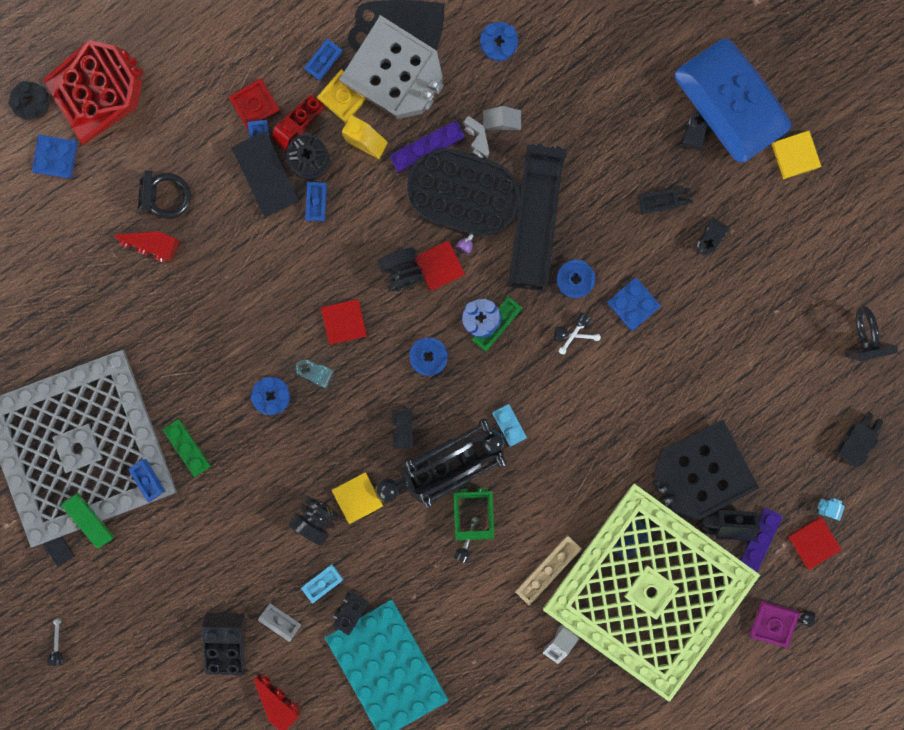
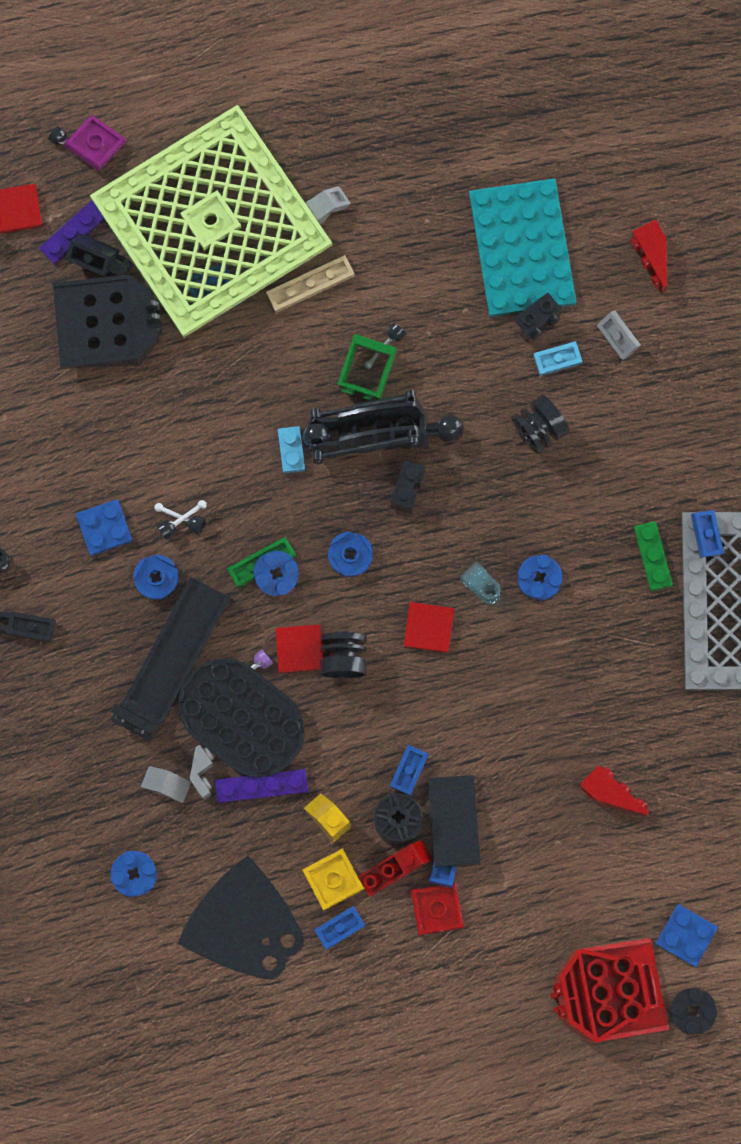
camera: 160 degrees left, 10 degrees down
(148, 193) = (593, 849): black tile -> none
(224, 643) = (686, 335): black slope -> none
(357, 498) = (486, 434): yellow tile -> none
(375, 50) = (252, 847): light grey hinge -> none

